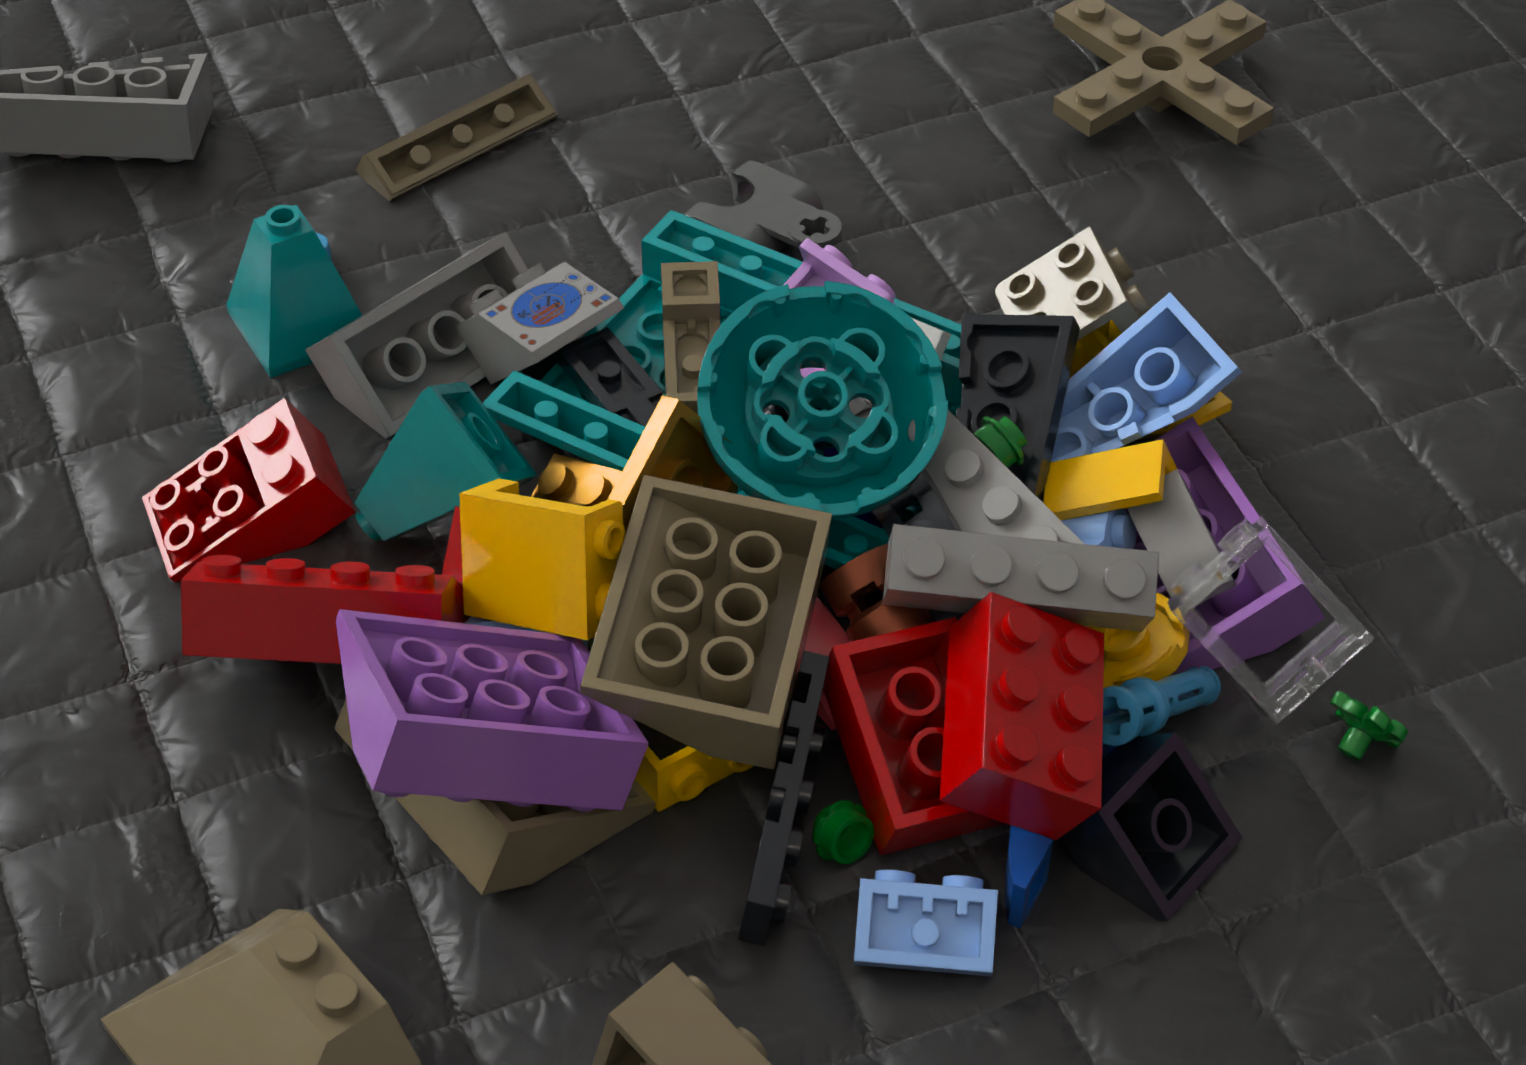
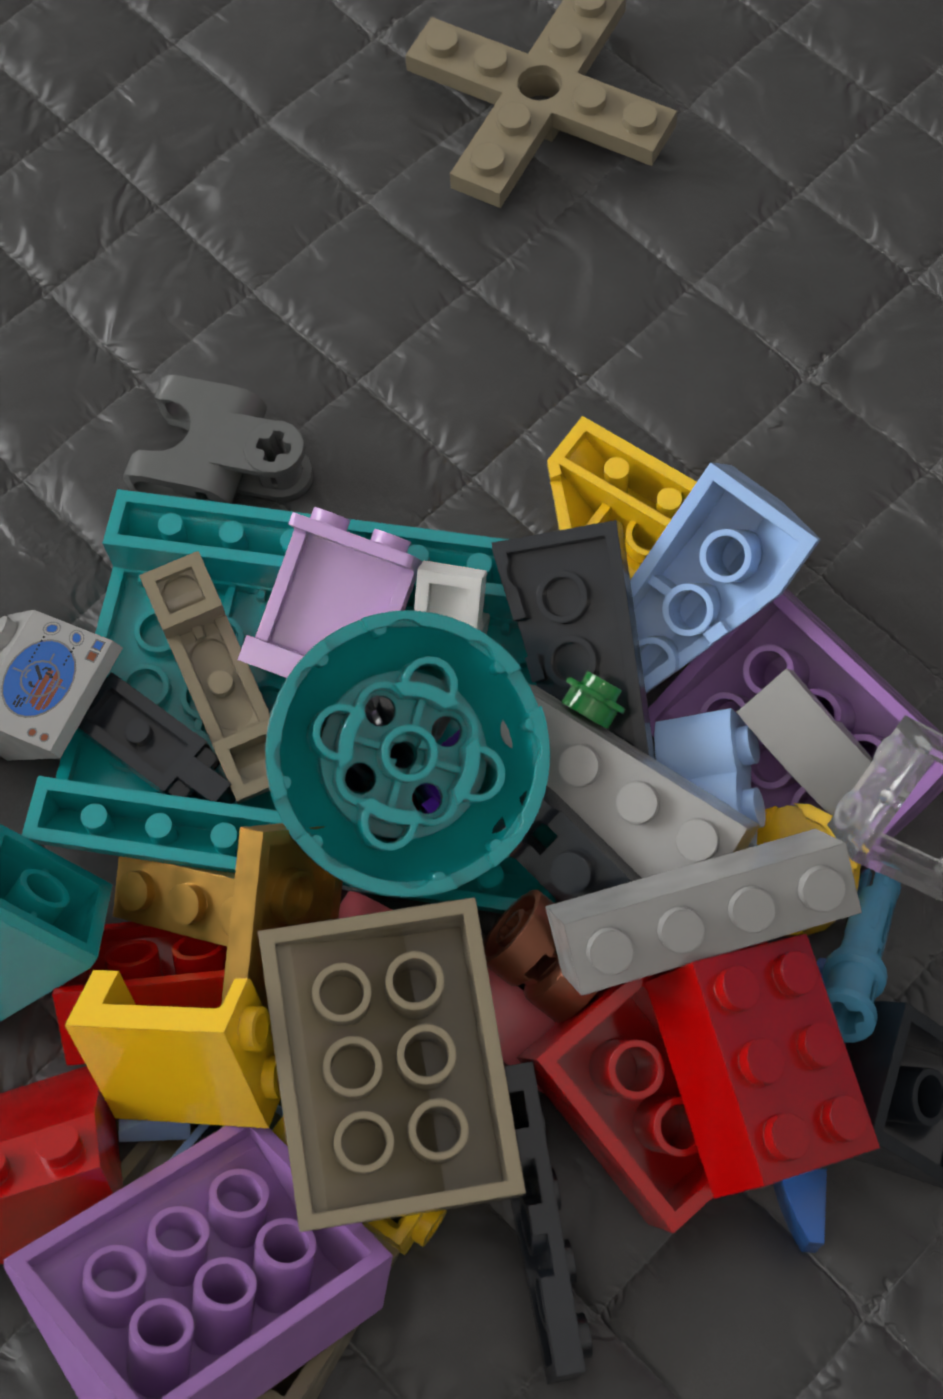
camera: 15 degrees left, 20 degrees up
(842, 832) = (603, 1219): green plate -> none
(926, 924) = (732, 1304): light blue bracket -> none
(1076, 281) = (593, 466): dark tan bracket -> none
(1108, 480) = (716, 700): yellow panel -> none

